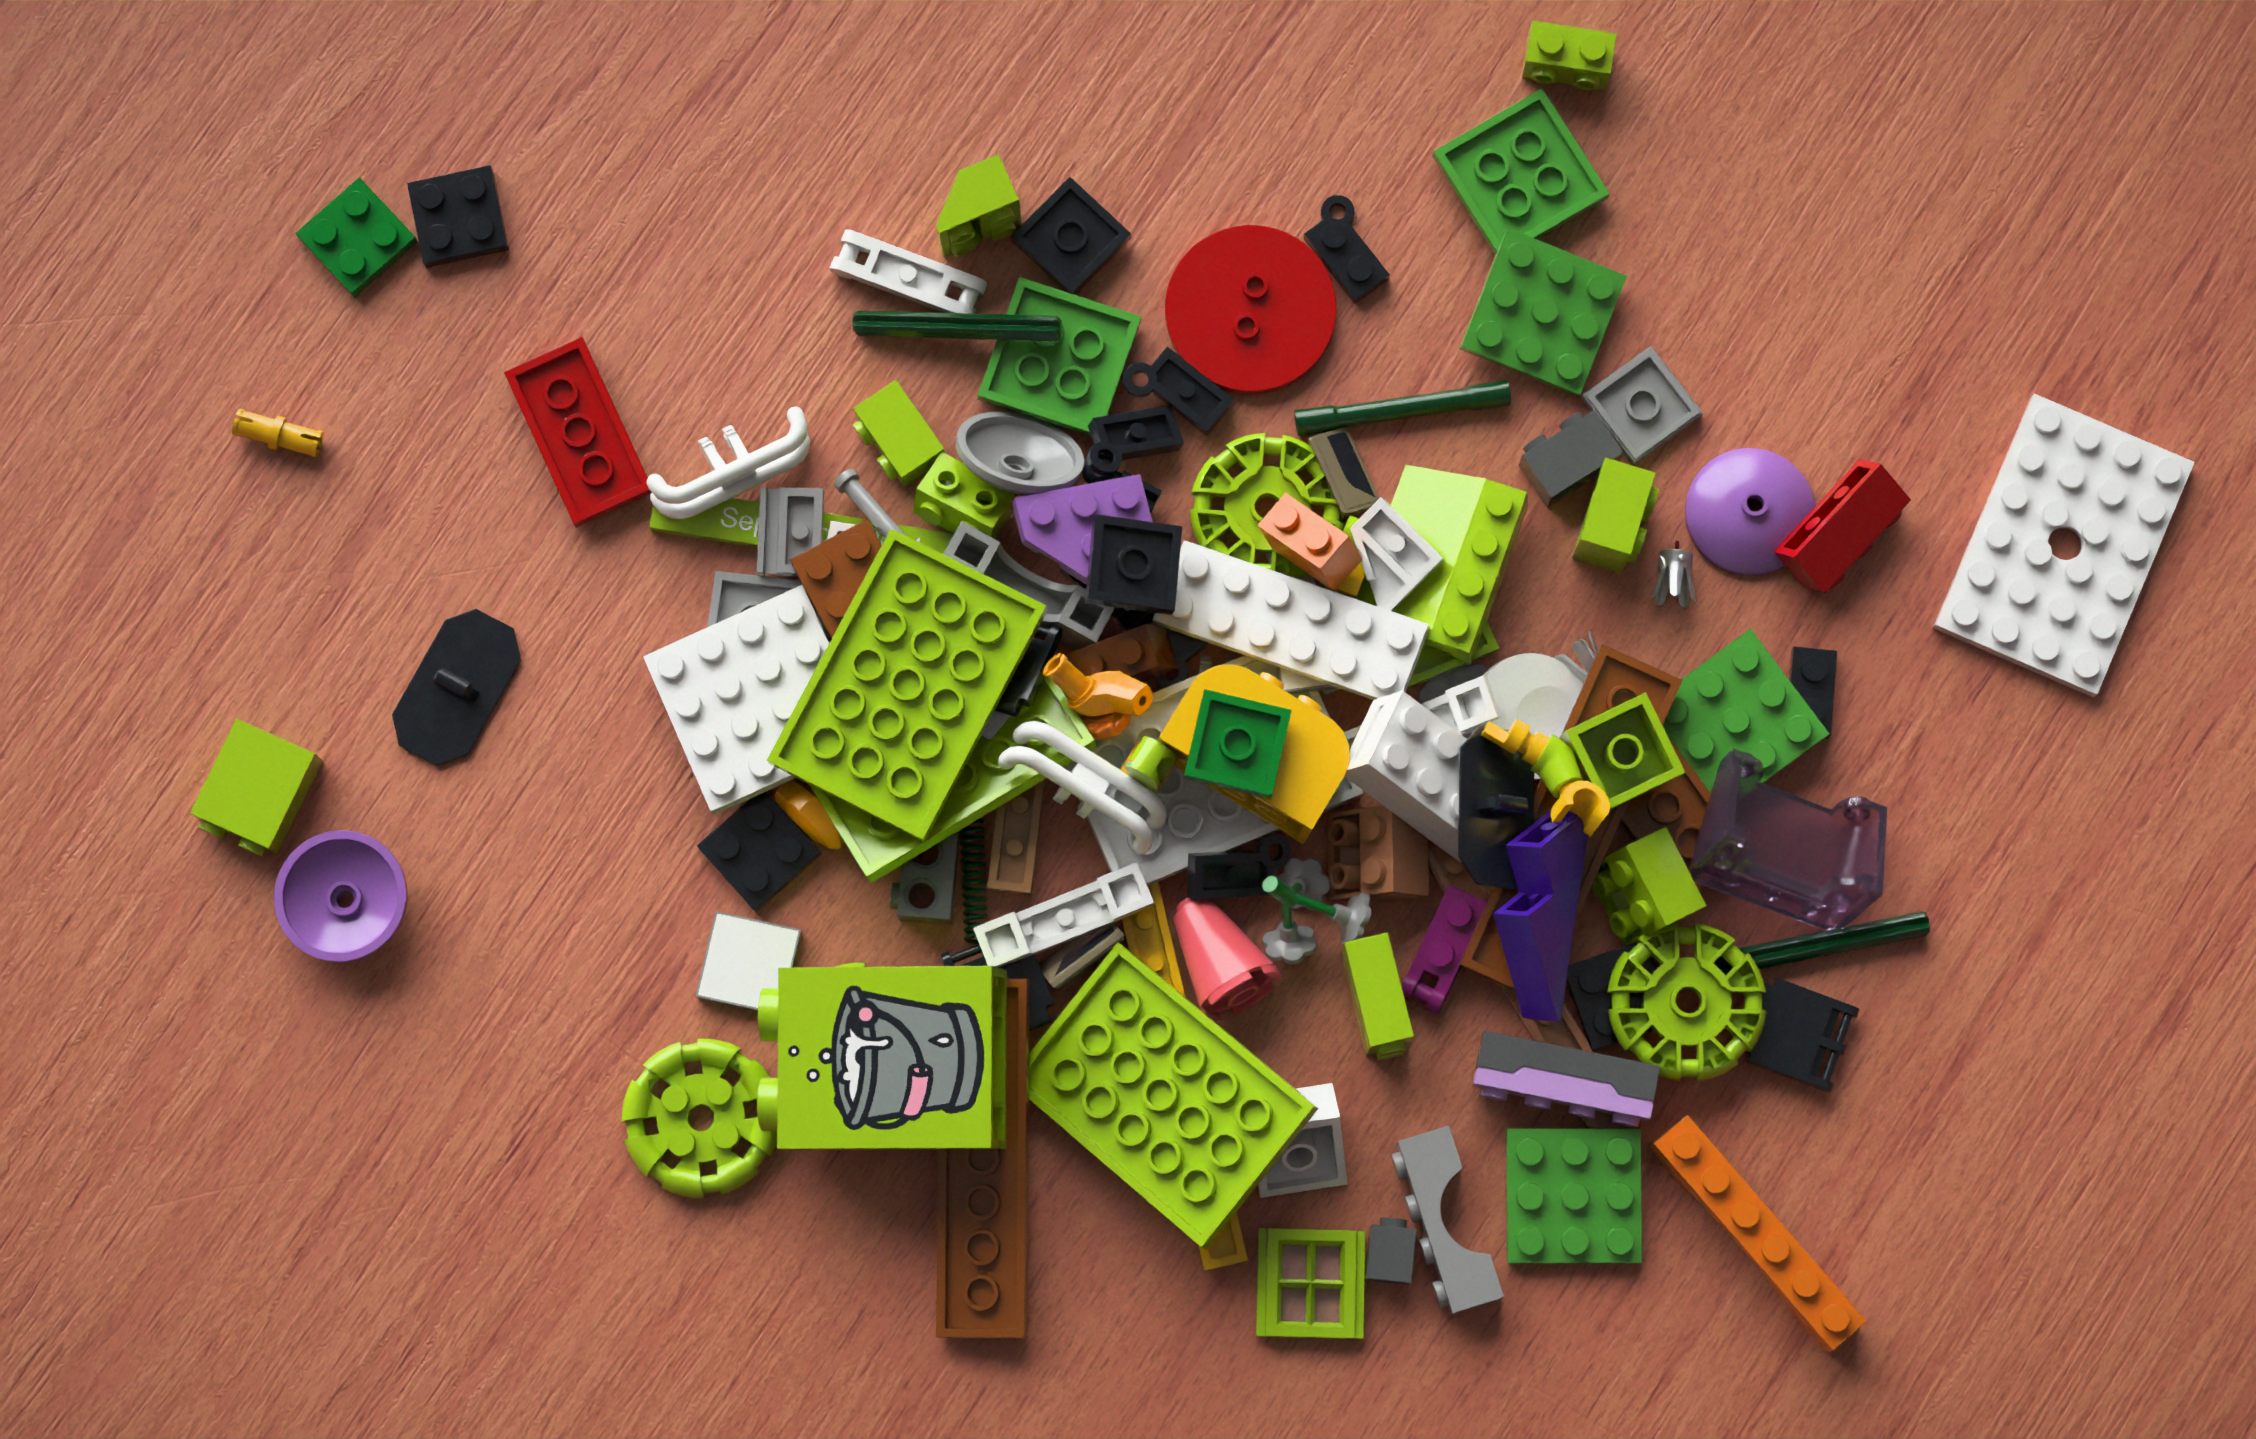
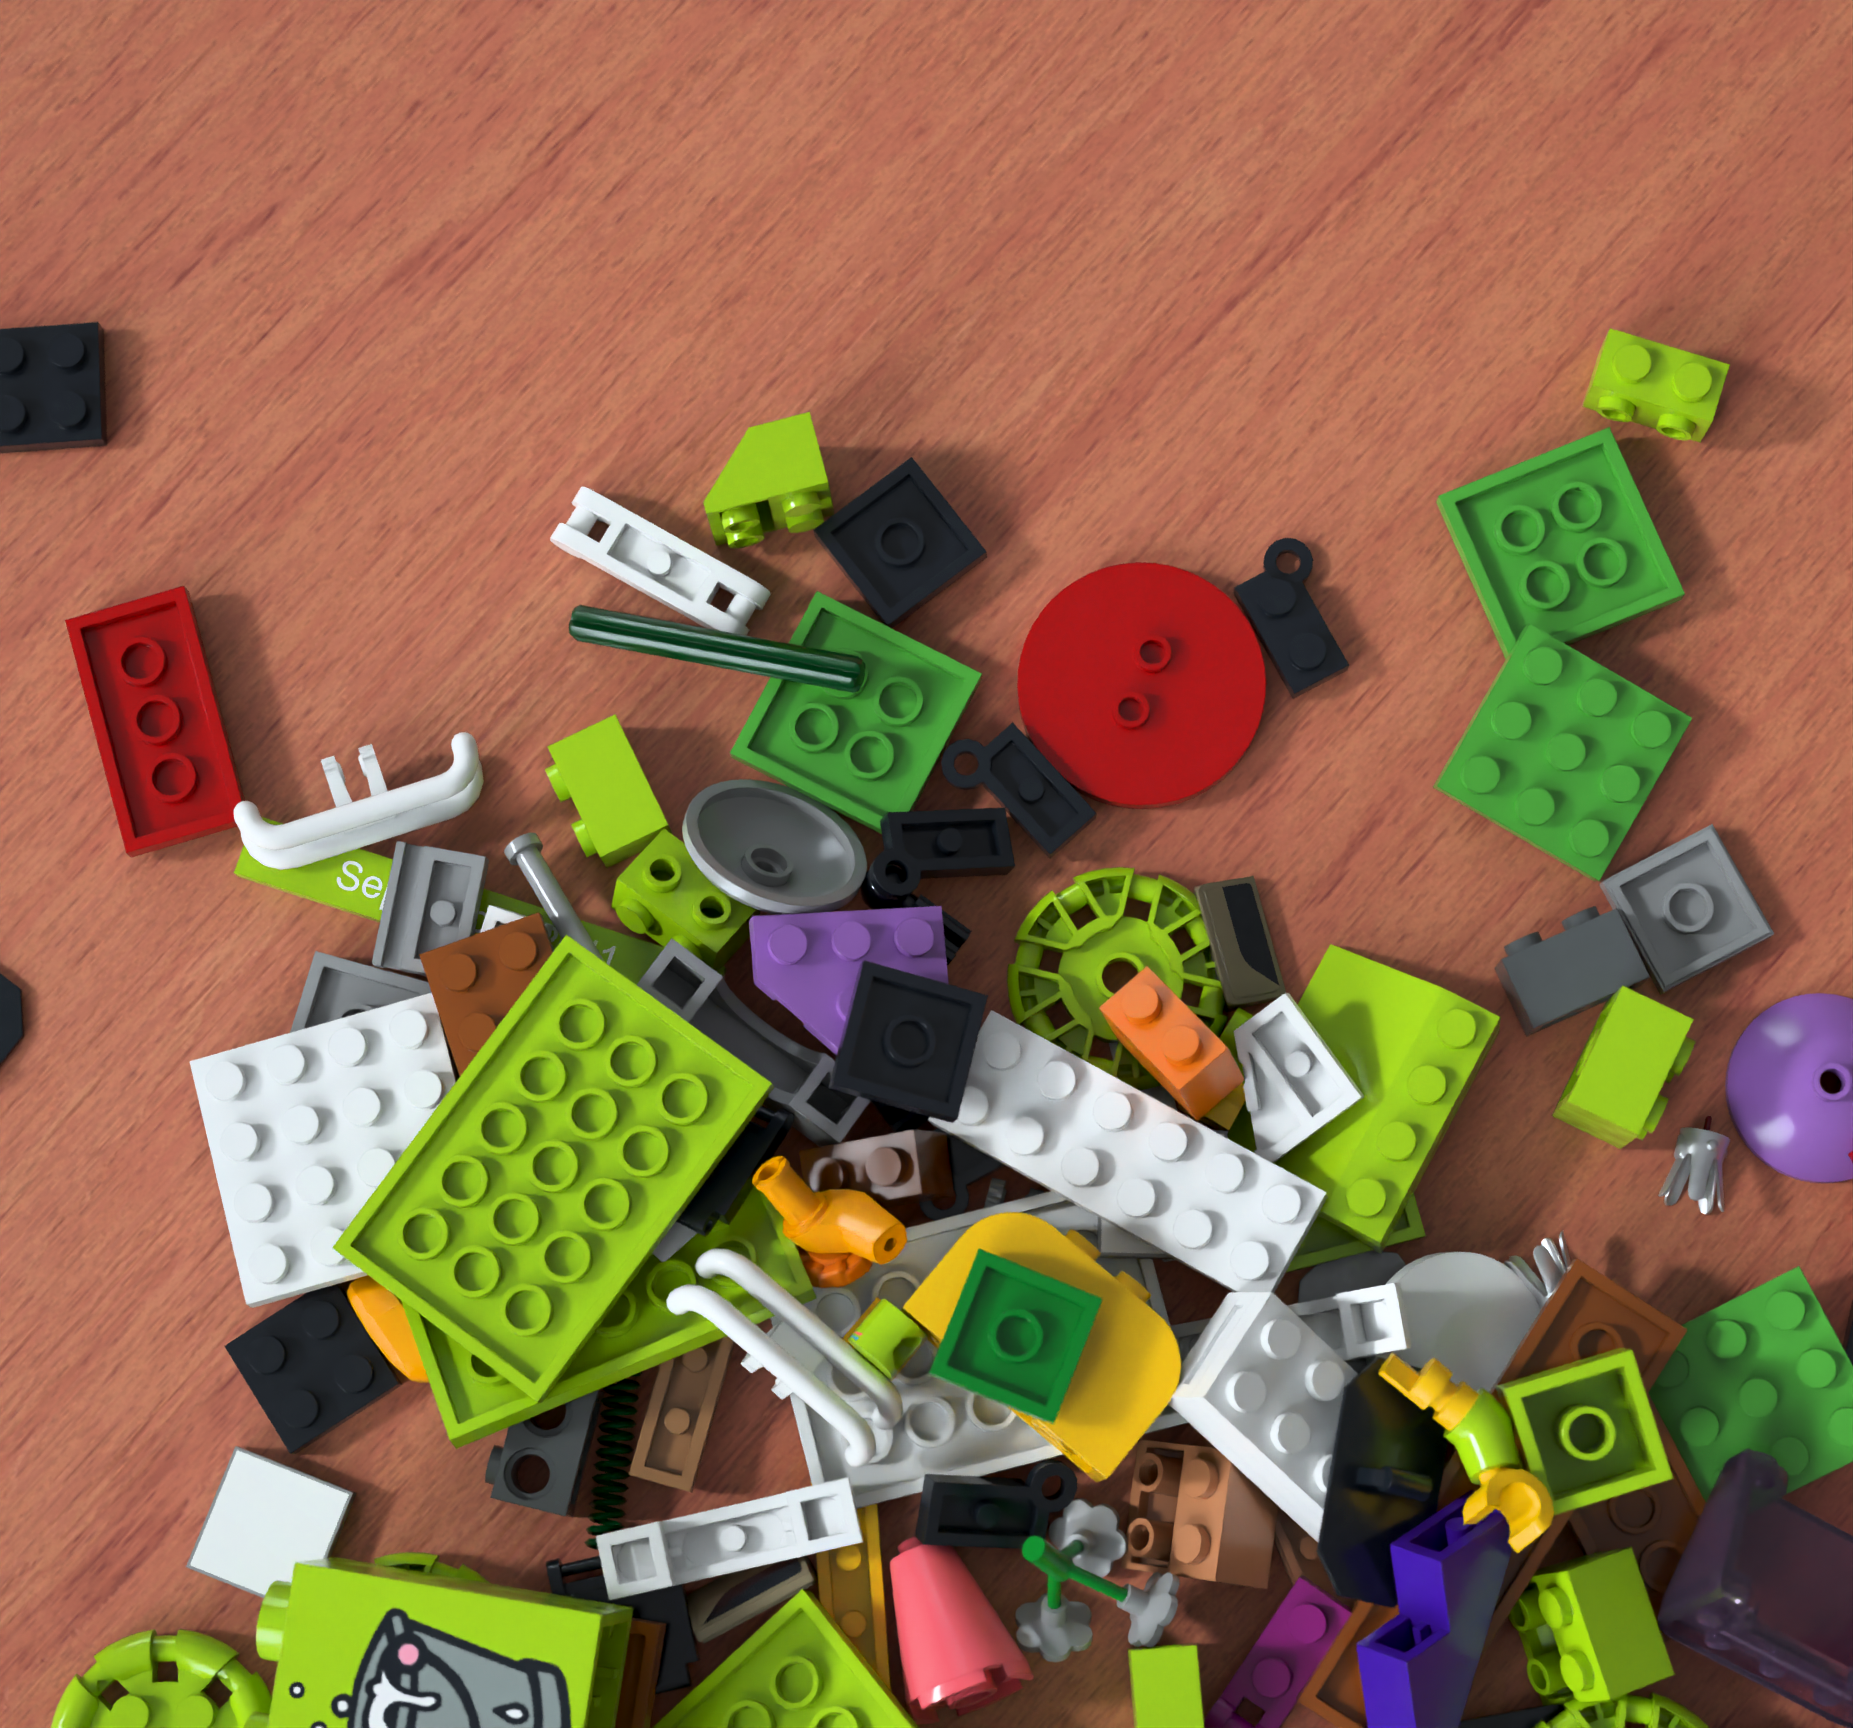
camera: 15 degrees right, 0 degrees up
(1470, 398) = (1440, 861): dark green piece -> none

